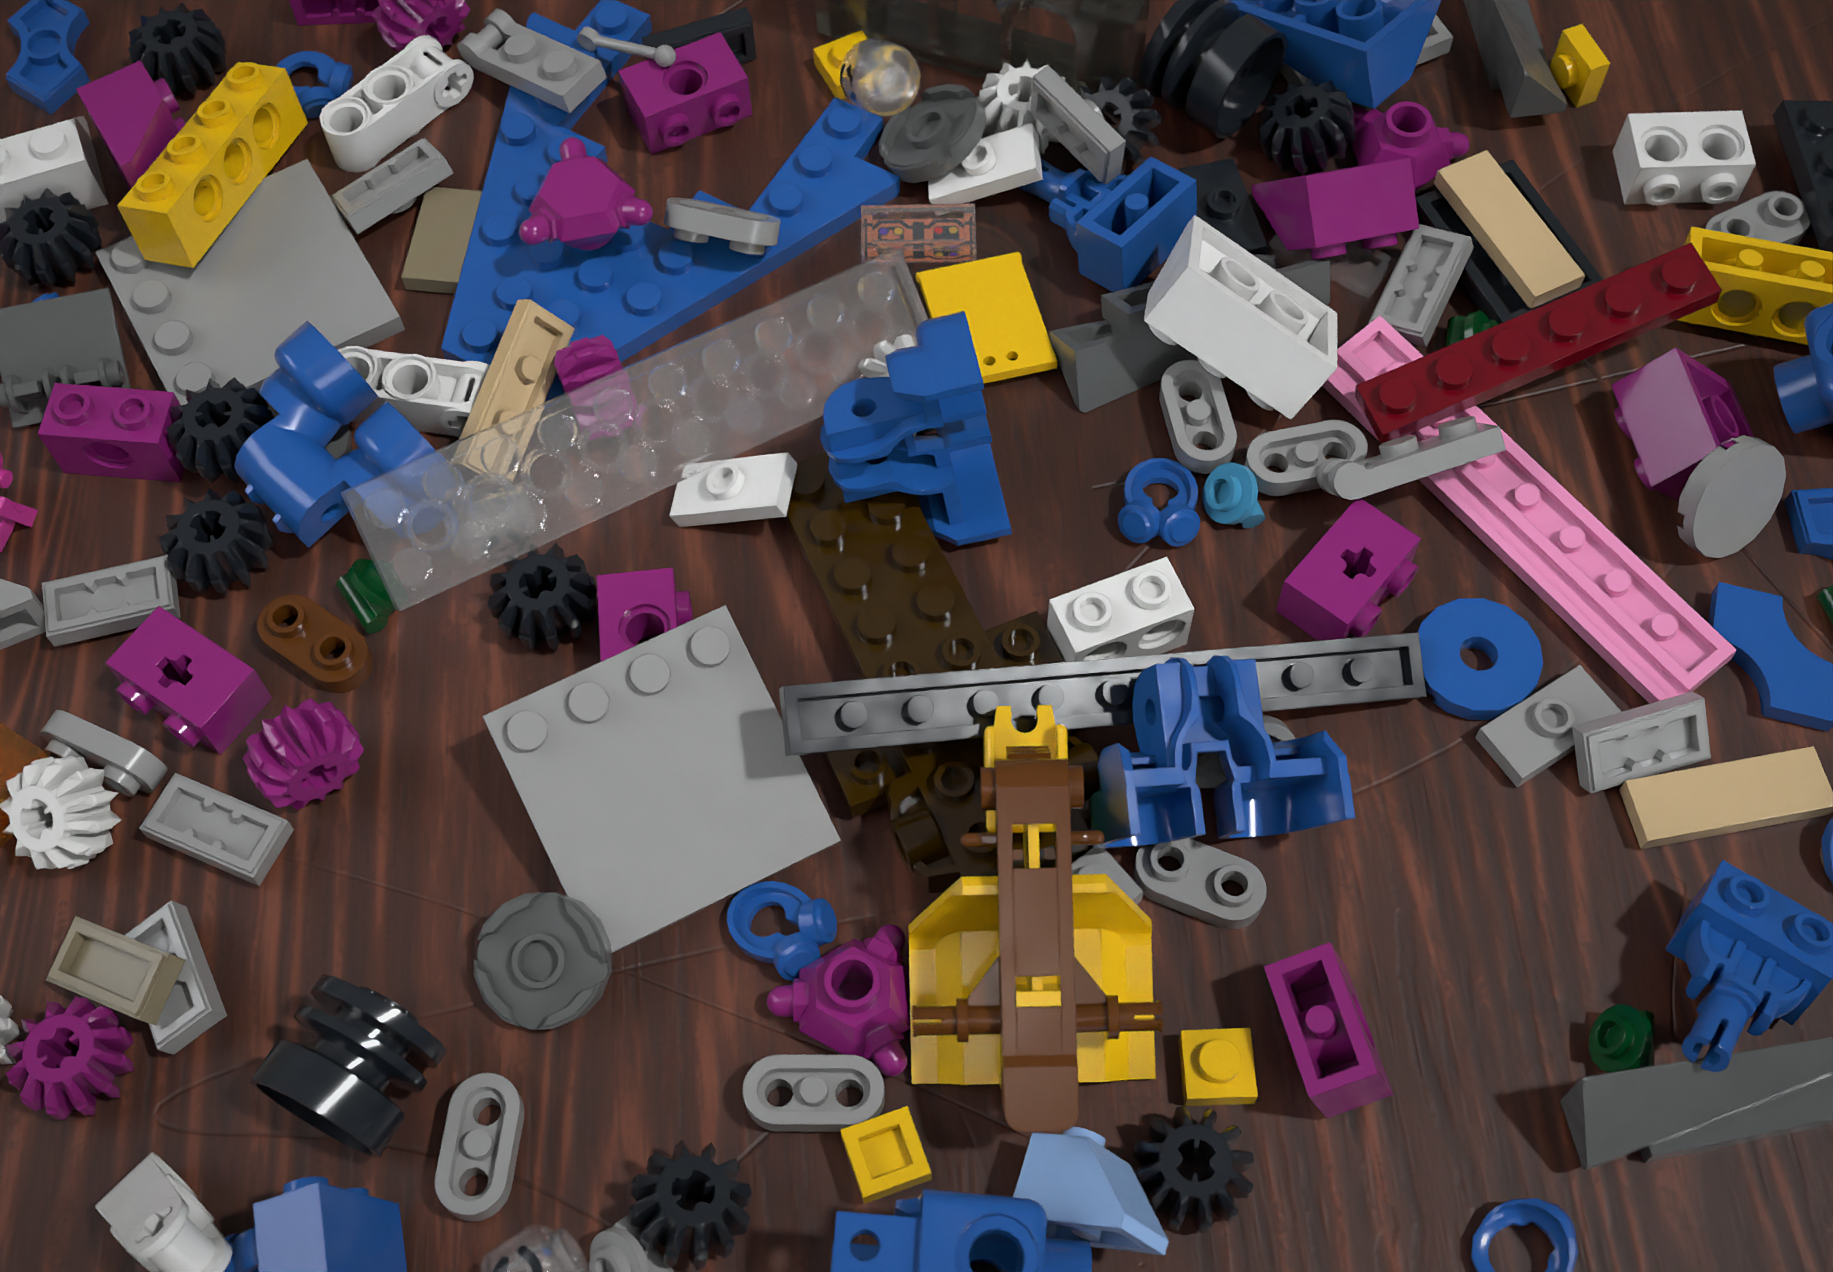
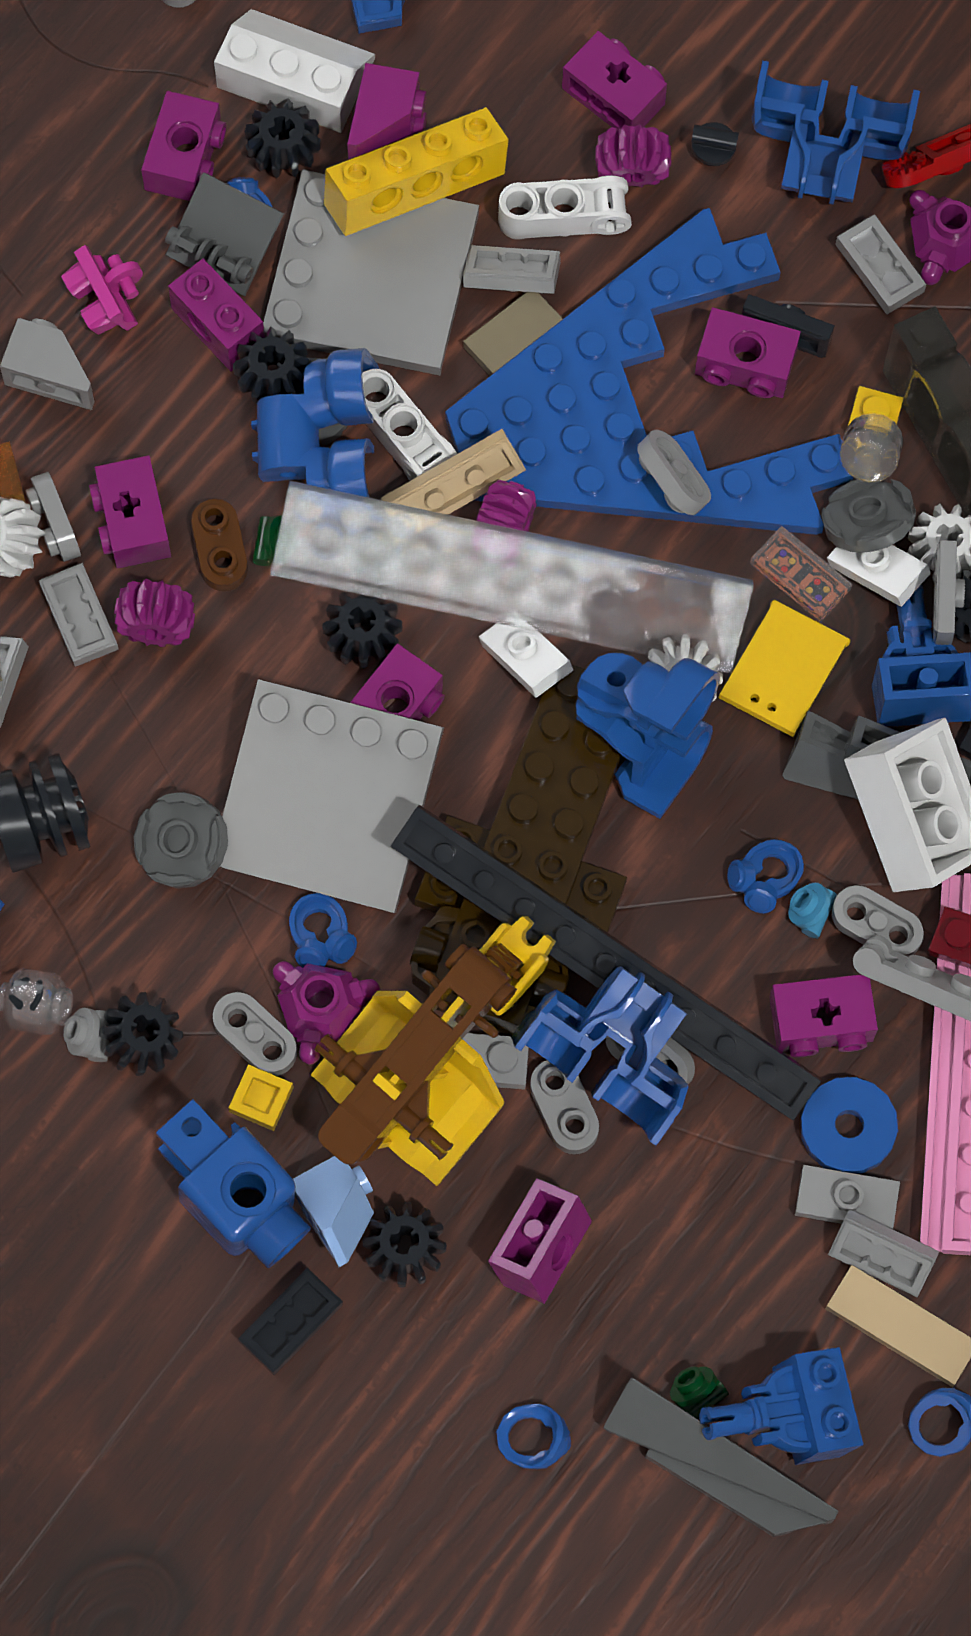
camera: 40 degrees right, 10 degrees up
(108, 600) = (131, 422): light grey plate -> none
(180, 48) = (466, 55): black gear -> none
(216, 542) = (215, 419): black gear -> none
(334, 76) = (547, 149): blue piece -> none
(478, 1148) = (63, 908): light grey plate -> none
(532, 62) = (669, 253): light grey plate -> none
(582, 202) = (599, 390): magenta rock -> none
(590, 40) = (746, 321): light grey hinge -> none
(1122, 615) = (663, 924): white brick -> none
(1198, 421) = (838, 843): light grey plate -> none
(1217, 1067) = (473, 1208): yellow plate -> none

